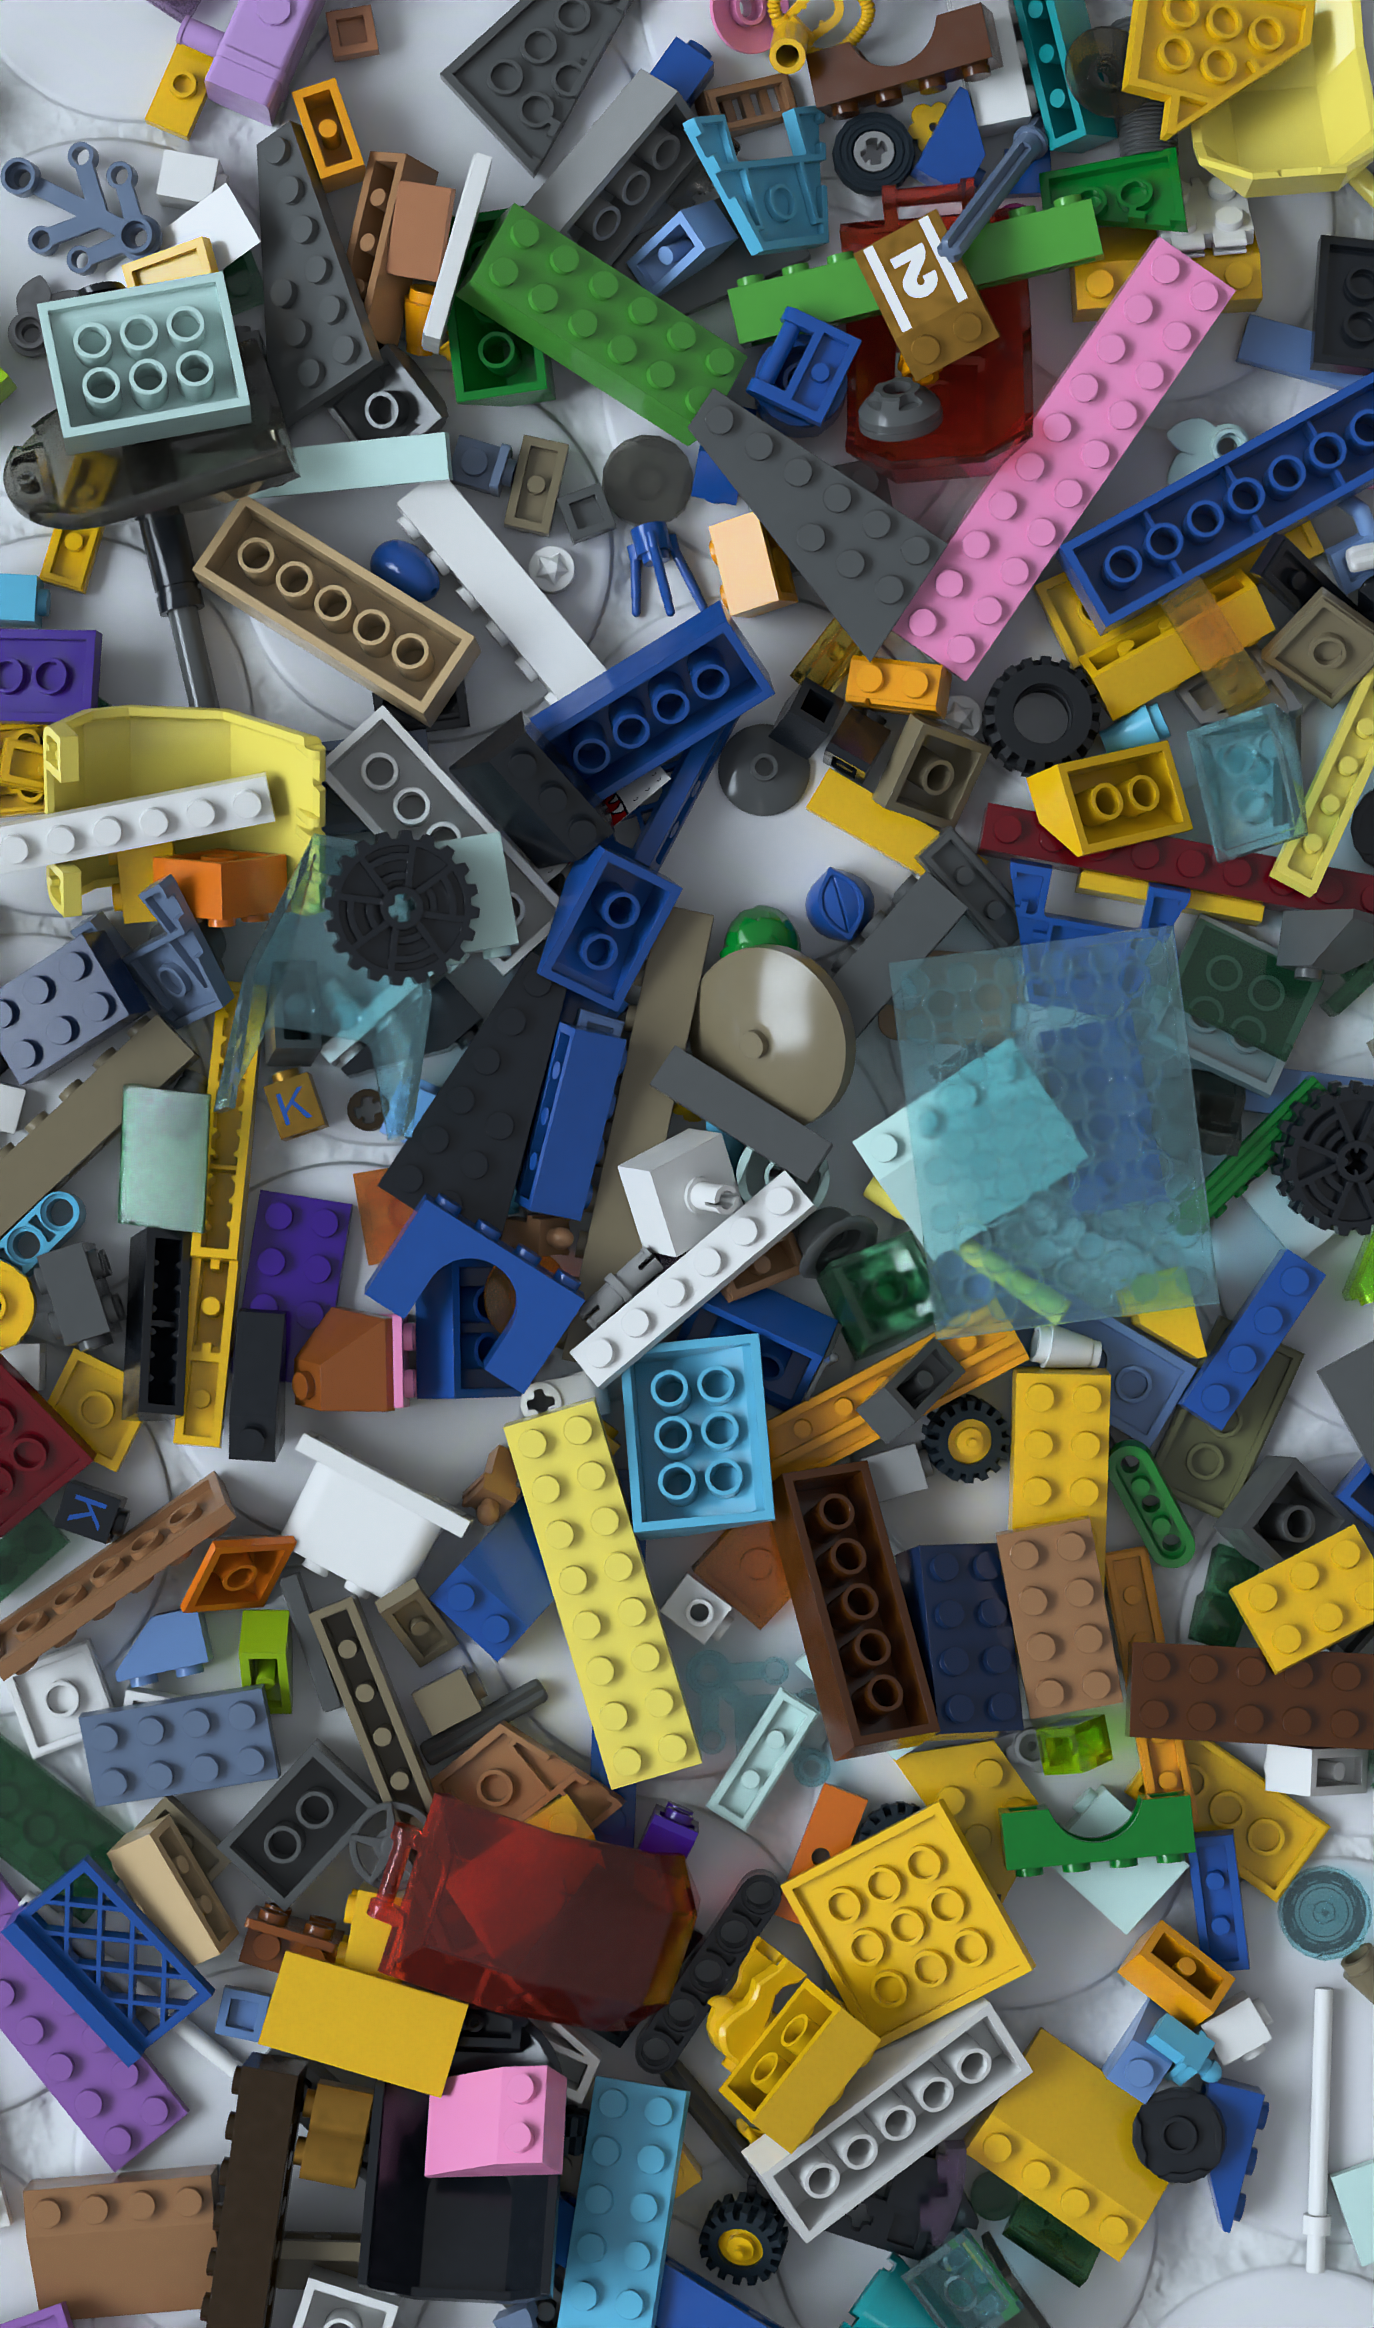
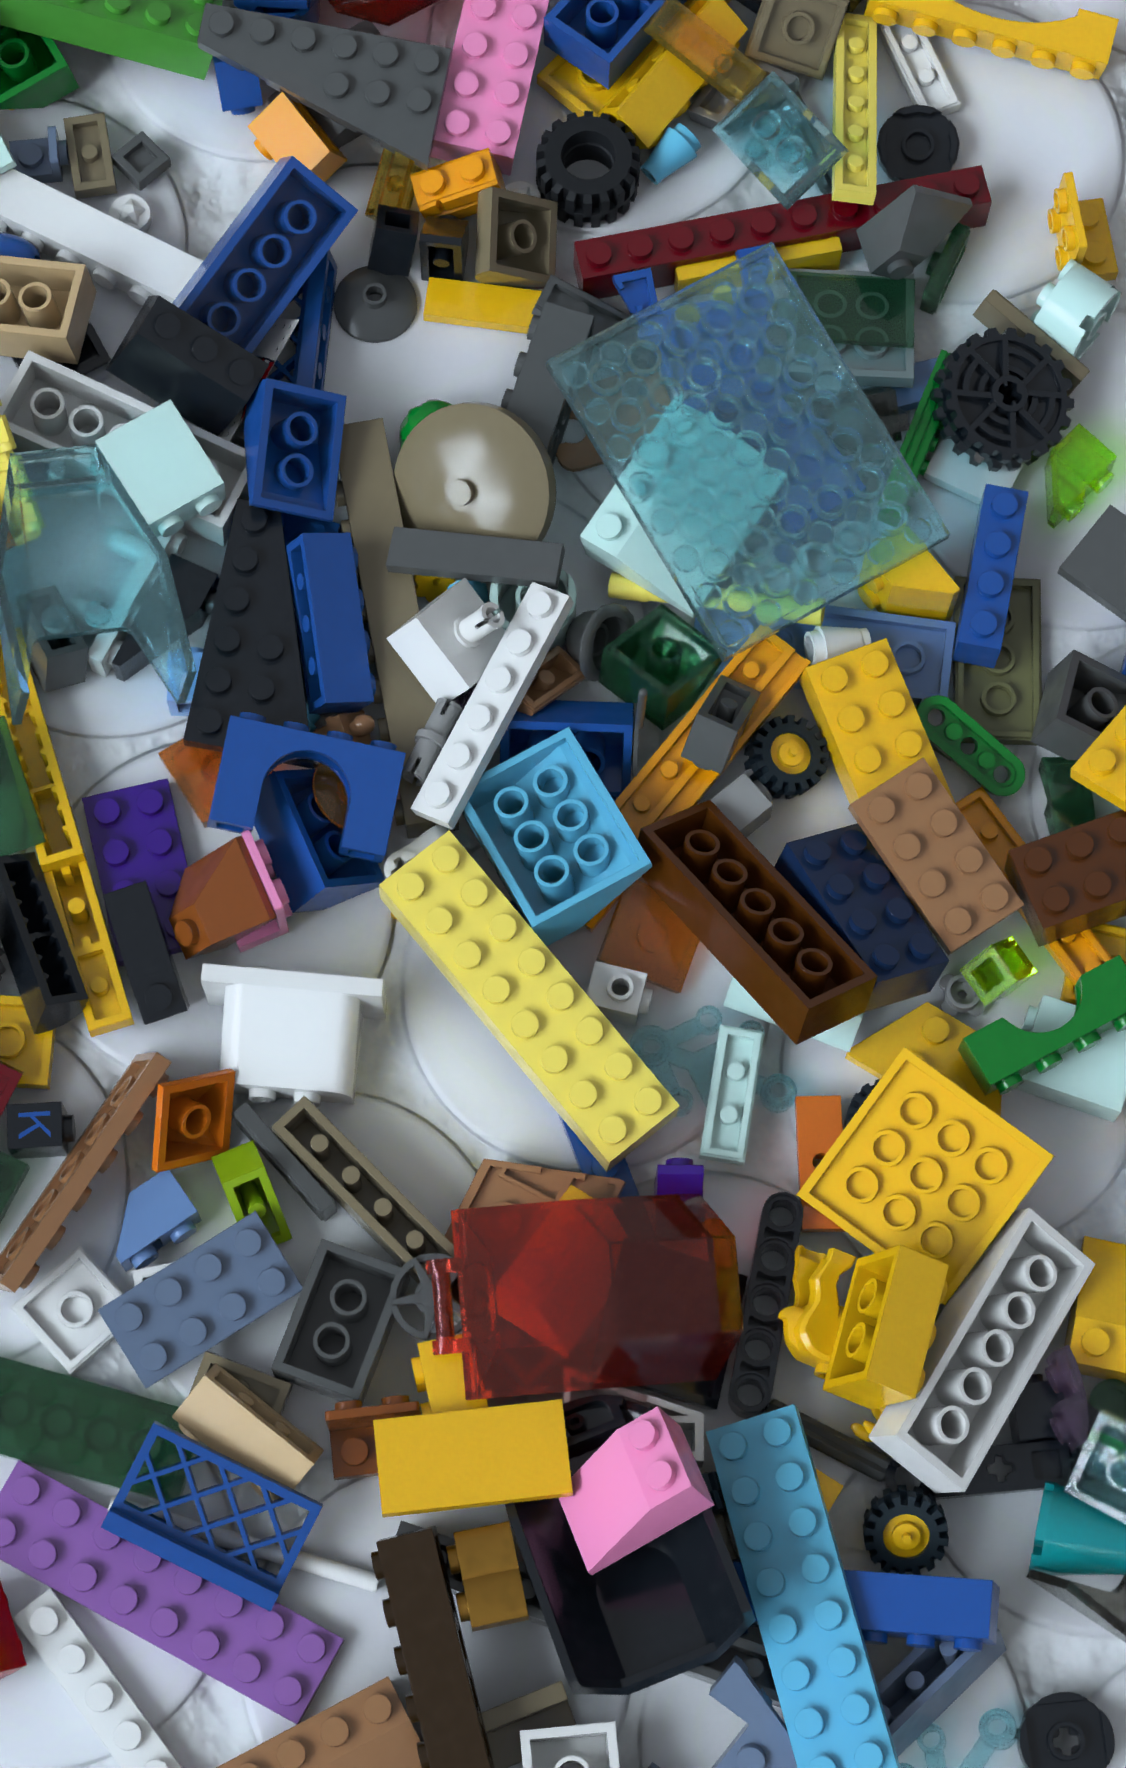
camera: 30 degrees left, 15 degrees down
(242, 2013) = (357, 1523): medium blue plate -> none
(295, 1104) = (84, 714): pearl gold brick -> none
(356, 1102) = (136, 696): dark brown bush -> none
(416, 1622) = (372, 1102): dark tan plate -> none
(433, 925) = (110, 449): black piece -> none
(450, 1699) = (430, 1161): dark tan brick -> none
(475, 1727) = (455, 1188): dark grey axle -> none
(495, 1489) = (394, 960): medium nougat piece -> none
(498, 1585) = (433, 1044): blue slope -> none
(647, 480) = (182, 120): clear smoke tile -> none
(653, 547) = (211, 166): blue plant -> none
(839, 905) = (483, 377): blue hat -> none
(1111, 799) = (671, 193): yellow slope -> none

